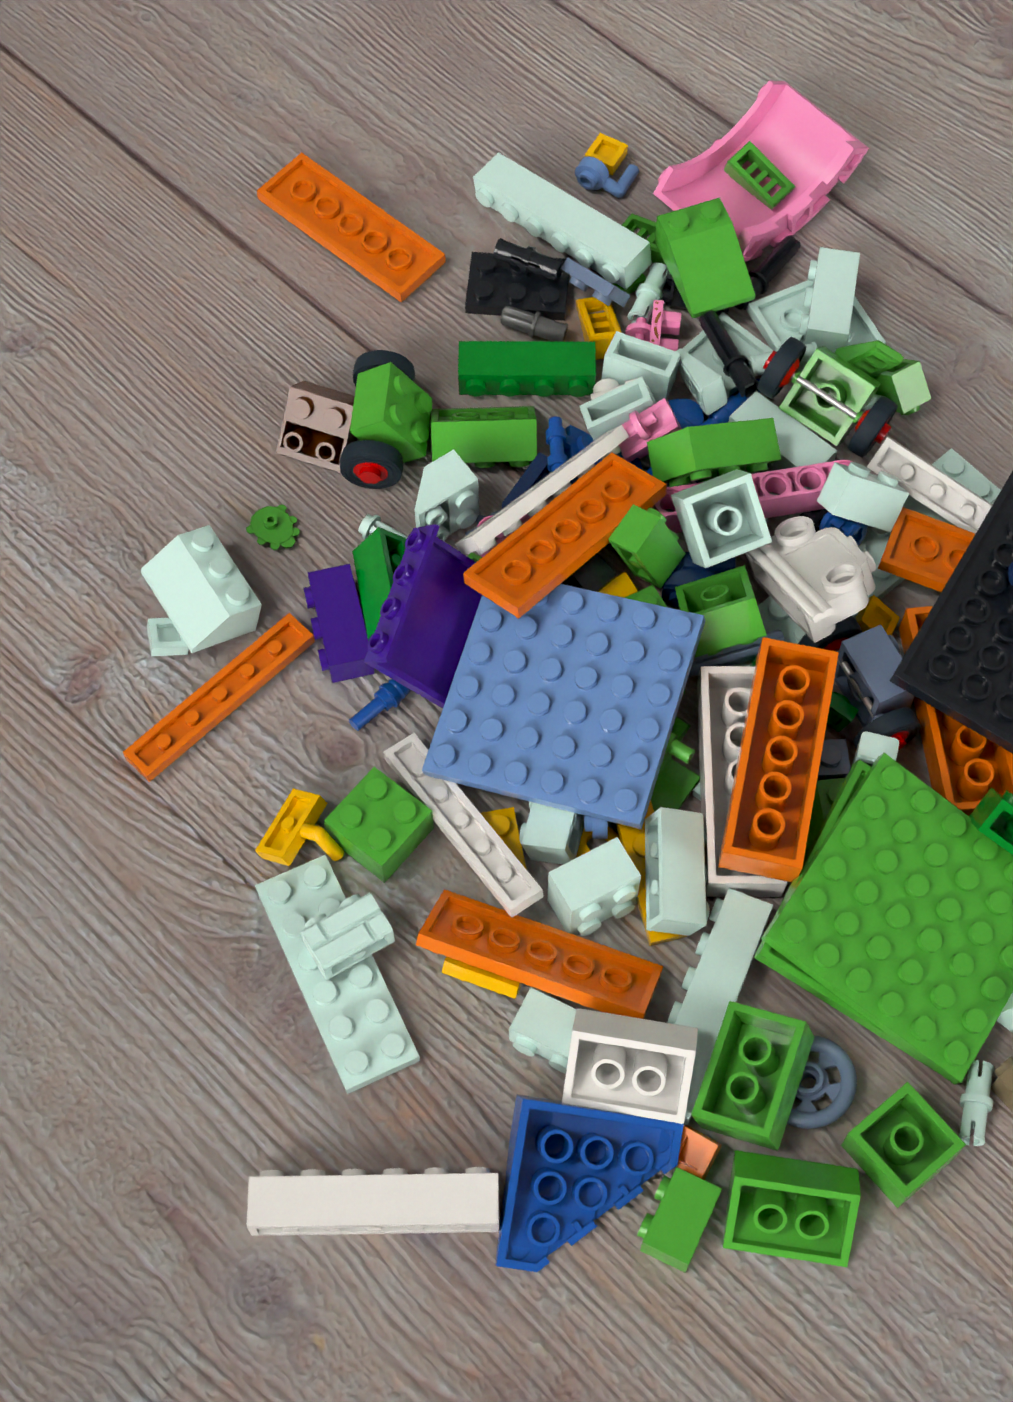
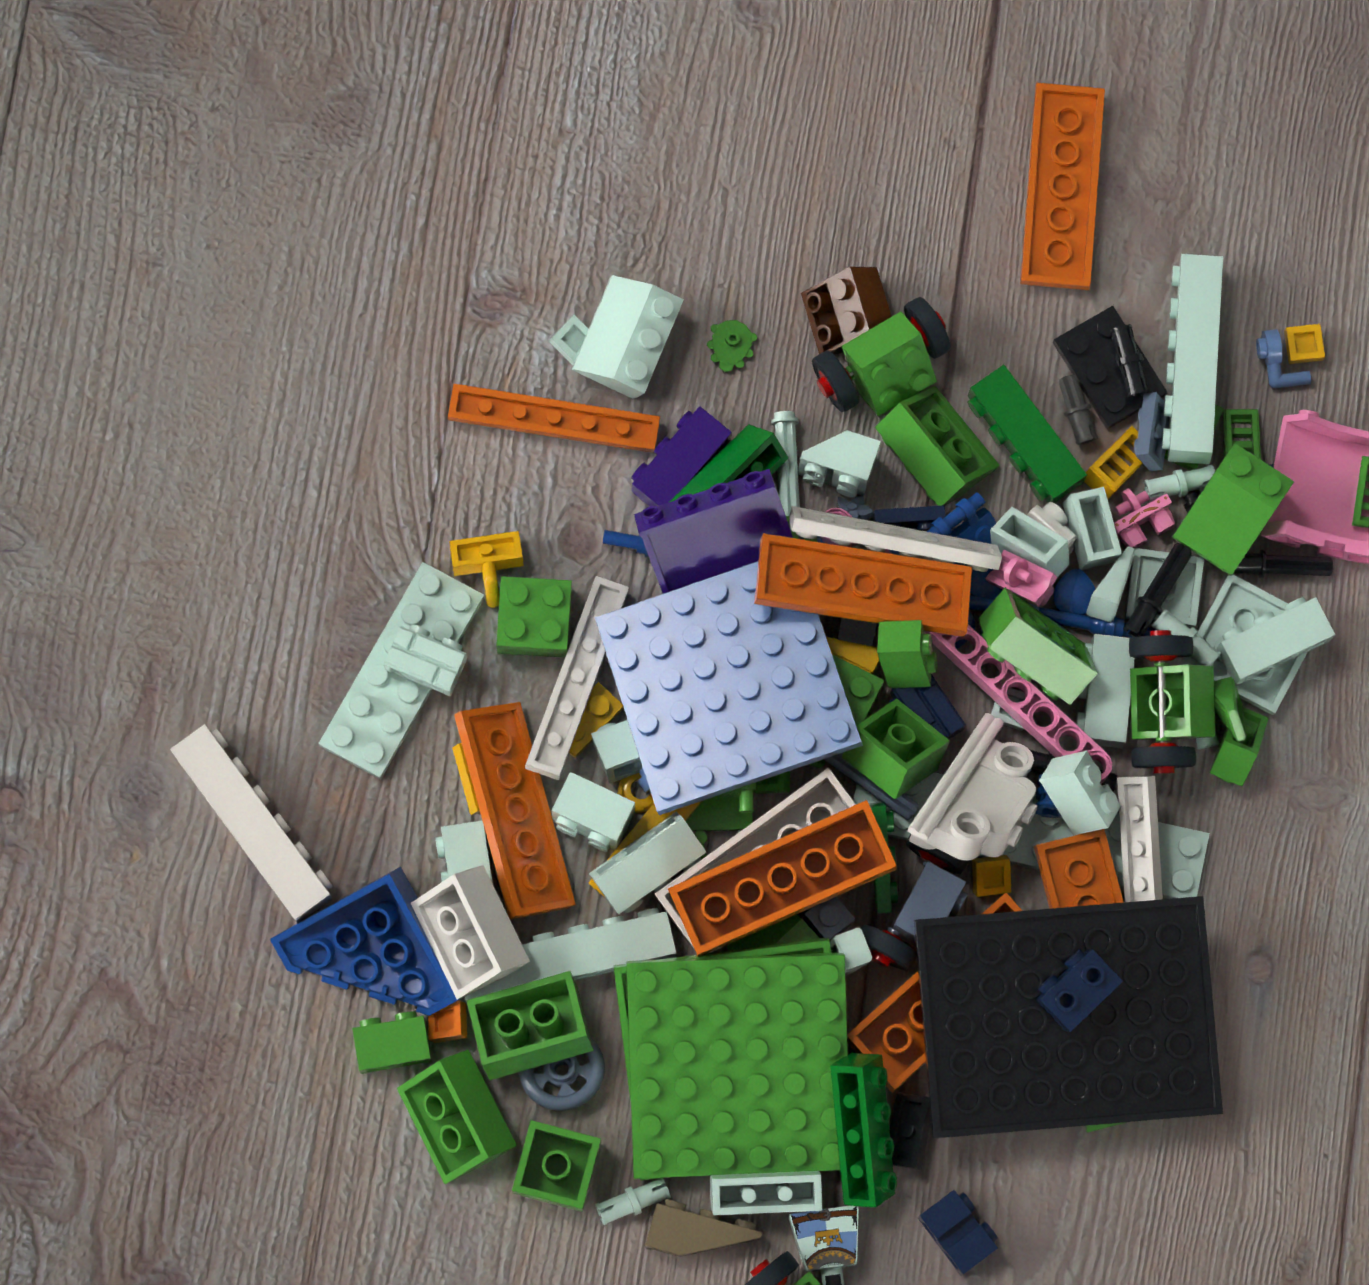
camera: 50 degrees right, 15 degrees up
(721, 518) = (969, 695): light aqua brick -> none

